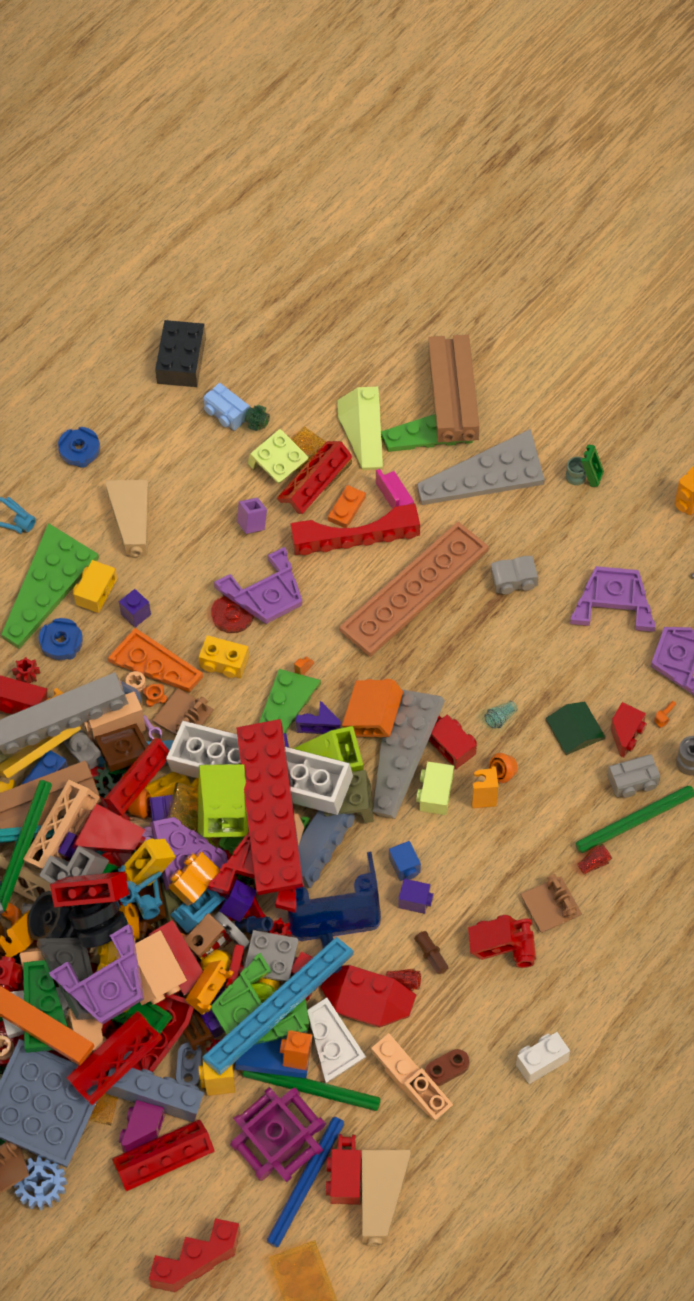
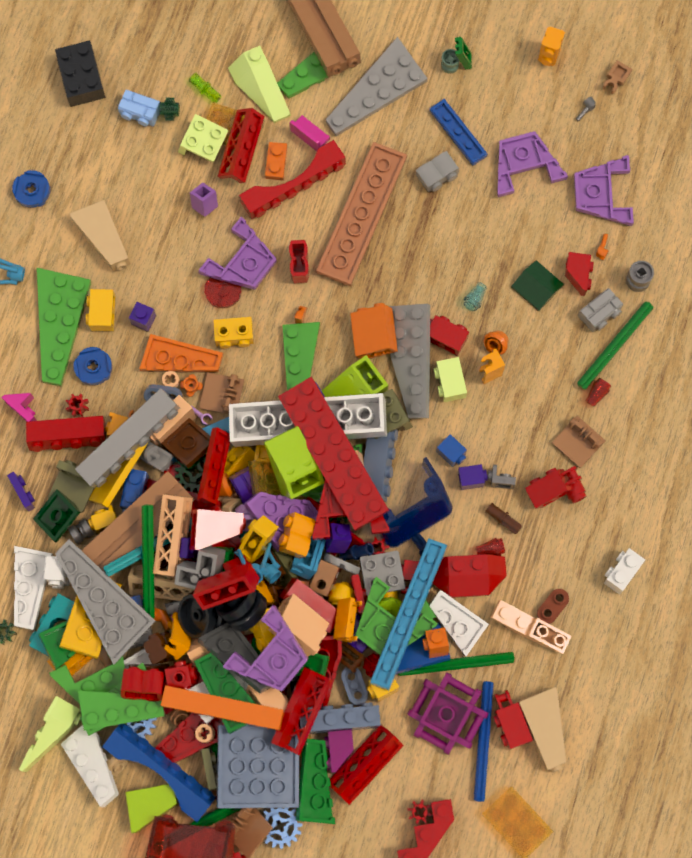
camera: 20 degrees left, 15 degrees up
(97, 1150) = (314, 785): none -> green wing
(199, 1220) = (420, 807): none -> red gear
(303, 410) = (205, 88): none -> clear neon green axle
(317, 724) = (339, 358): dark purple slope -> none
(324, 610) = (299, 261): none -> red brick
(446, 913) = (503, 481): none -> flat silver bracket
(555, 545) = (458, 132): none -> blue tile

